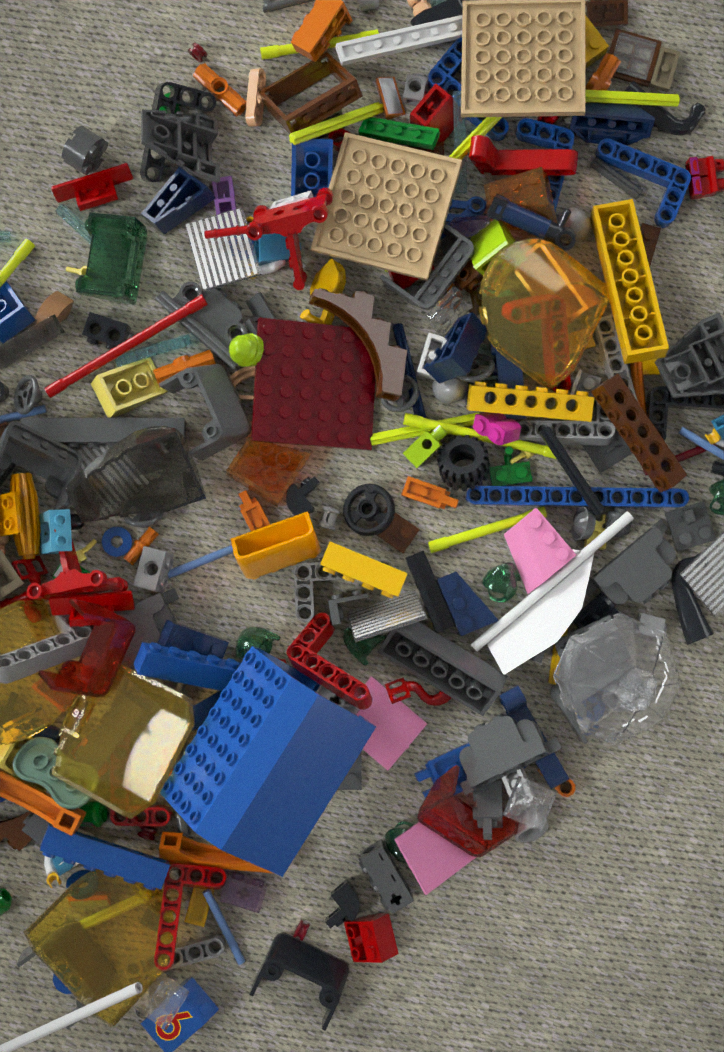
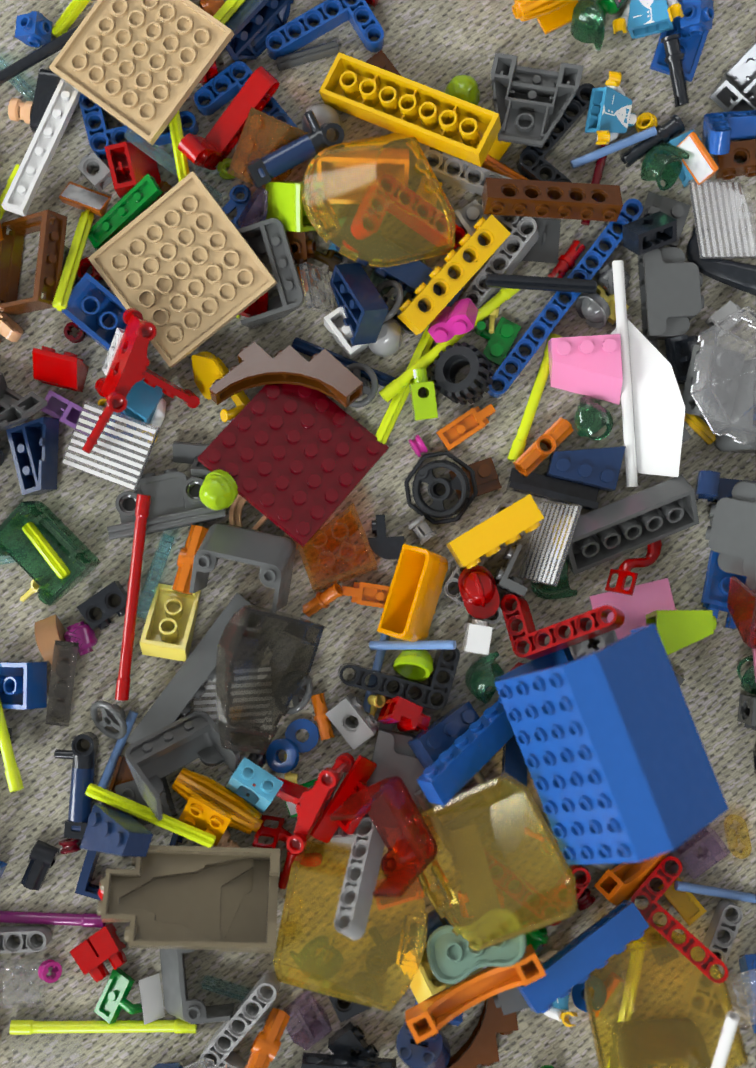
camera: 50 degrees left, 0 degrees up
(73, 331) = (81, 634): none -> magenta head
(85, 532) = (273, 758): none -> blue piece
(114, 260) = (46, 550): none -> neon yellow axle
(179, 576) = (375, 702): none -> light yellow hand
(186, 603) = (405, 713): none -> red hips
(207, 588) = (405, 685): none -> black beam
(225, 484) = (322, 600): none -> orange axle
(227, 583) = (414, 664): none -> lime hat
(241, 575) = (417, 645): none -> medium blue bar
(251, 174) = (59, 369): none -> red slope
(279, 614) = (477, 637): none -> white brick
(279, 915) = (742, 835): none -> clear yellow beam
(281, 164) = (67, 329): none -> dark red bush
(313, 591) = (479, 592): none -> red piece
(375, 536) = (461, 463): none -> black piece
(388, 470) = (418, 446): none -> dark pink bush
(392, 755) = (682, 627): none -> lime slope
(467, 563) = (535, 455): none -> orange piece
(485, 178) = (221, 168): none -> lime plate
(606, 478) = (567, 260): none -> red pin
(668, 522) = (649, 233): none -> black brick
(674, 311) = (464, 88): none -> lime hat

